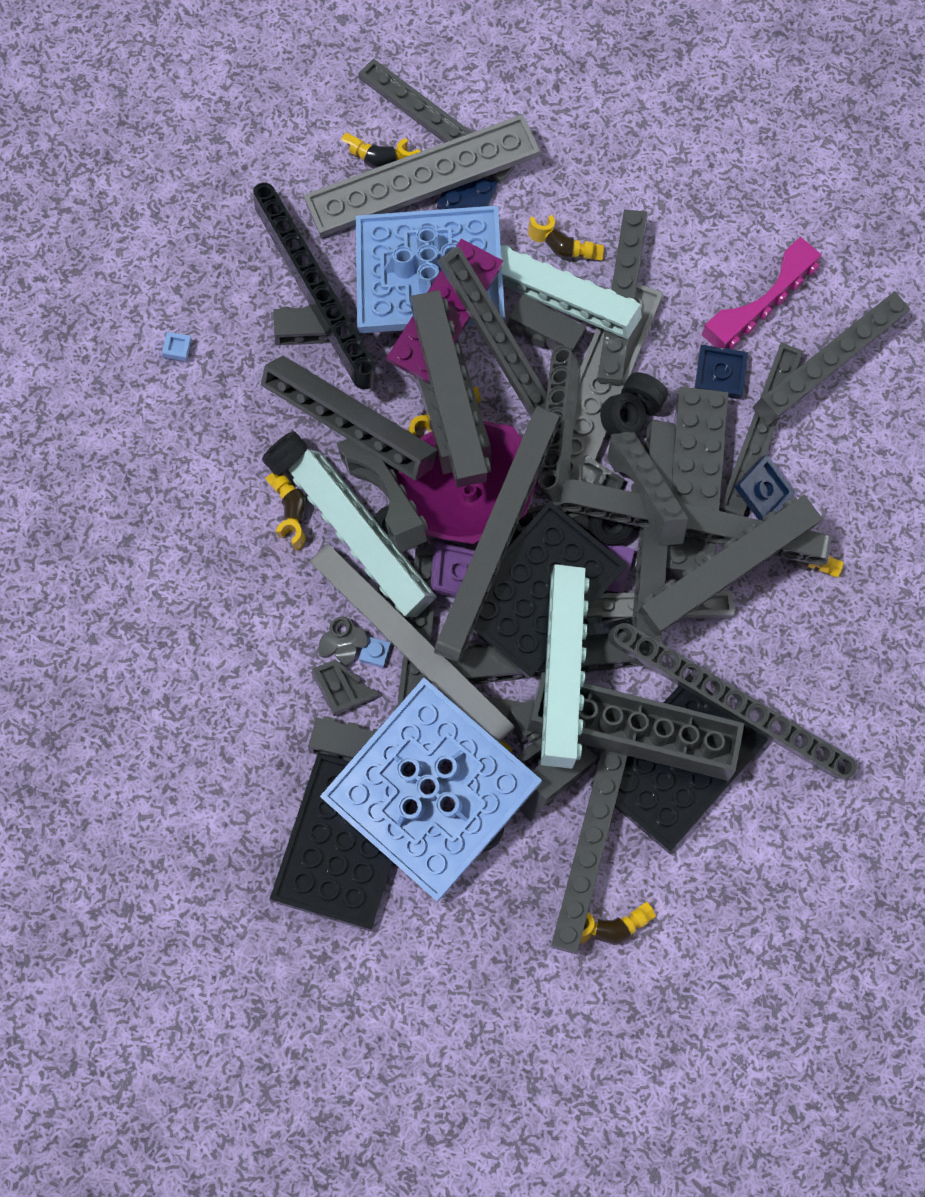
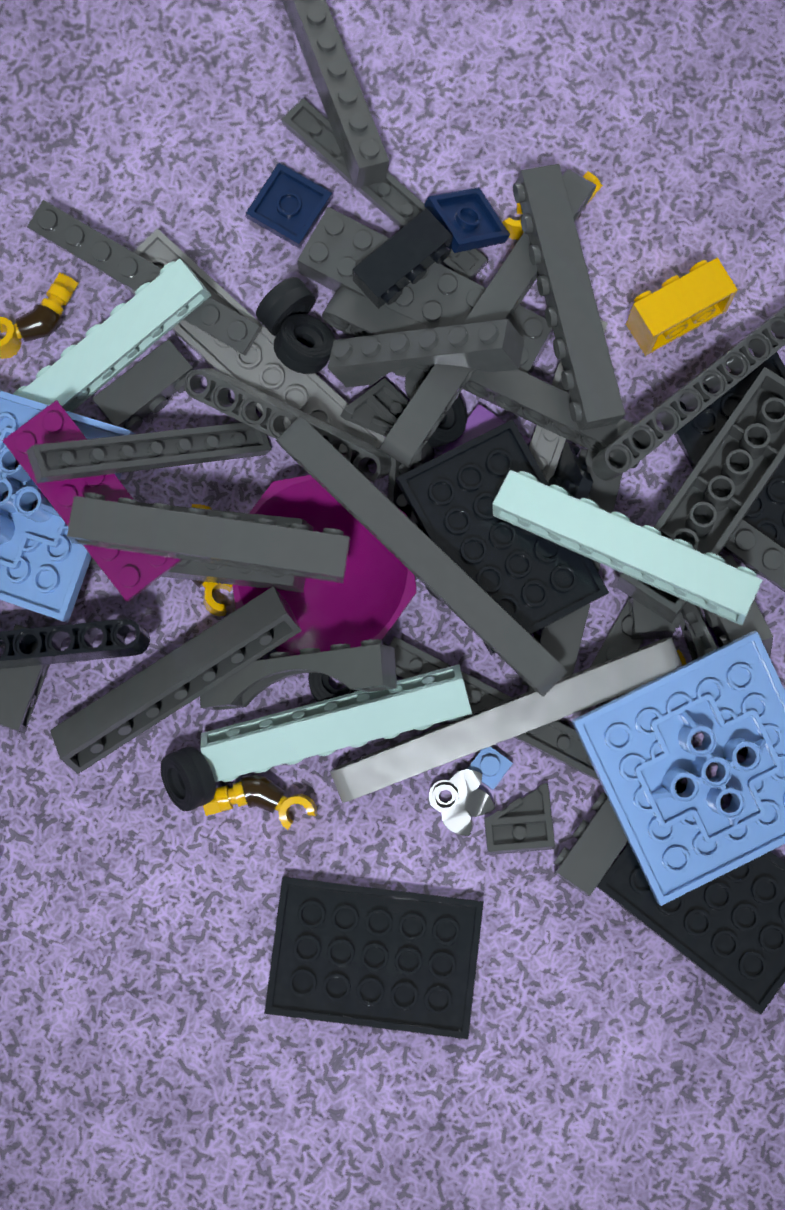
camera: 60 degrees left, 10 degrees up
(210, 623) = (374, 957): none -> black plate
(449, 568) = (426, 629): medium lavender tile -> none
(709, 450) = (403, 259): none -> black brick
(730, 324) = (185, 60): dark pink arch -> none
(767, 656) = (680, 305): none -> yellow brick

